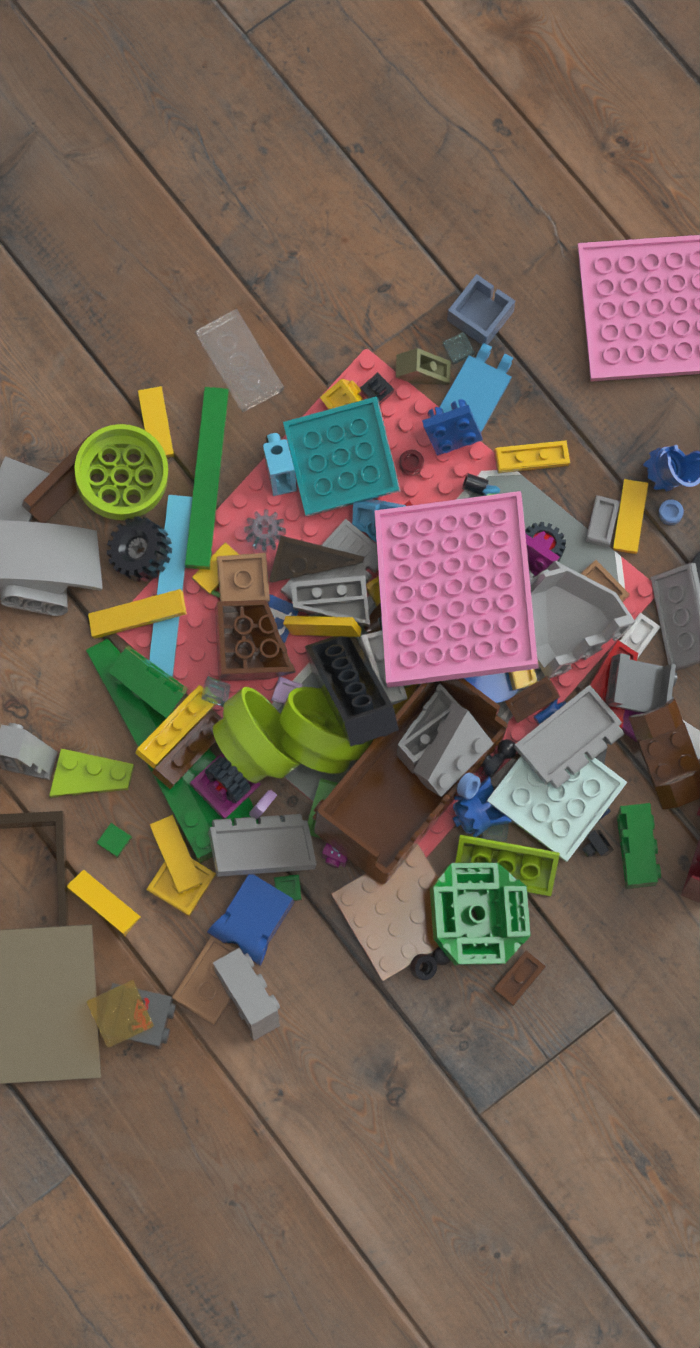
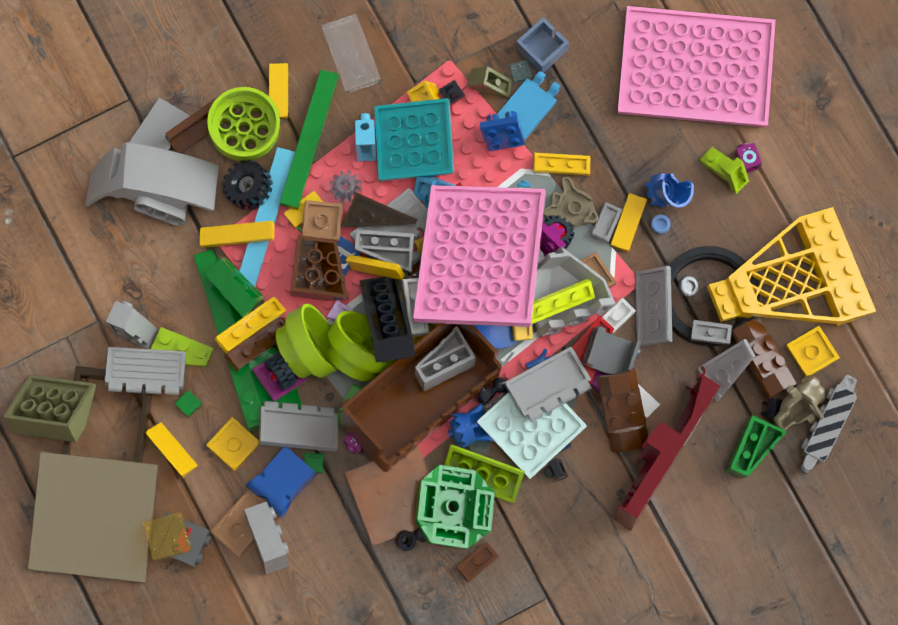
camera: 10 degrees right, 0 degrees up
(52, 805) = (145, 369): none -> light grey hinge
(175, 854) = (232, 422): yellow tile -> none
(215, 691) = (285, 303): clear light blue tile -> none
(262, 804) = (305, 395): lavender tile -> none
(411, 462) = (467, 153): dark red tile -> none
(452, 751) = (456, 379): light grey wedge -> none
(468, 785) = (463, 407): medium blue tile -> none
(475, 484) = (513, 177): black hinge -> none
(532, 699) = (526, 350): reddish brown plate -> none
(556, 506) = (572, 204): none -> dark tan tile
(569, 627) = (562, 300): none -> neon yellow plate
(638, 846) = (587, 476): green wedge -> none

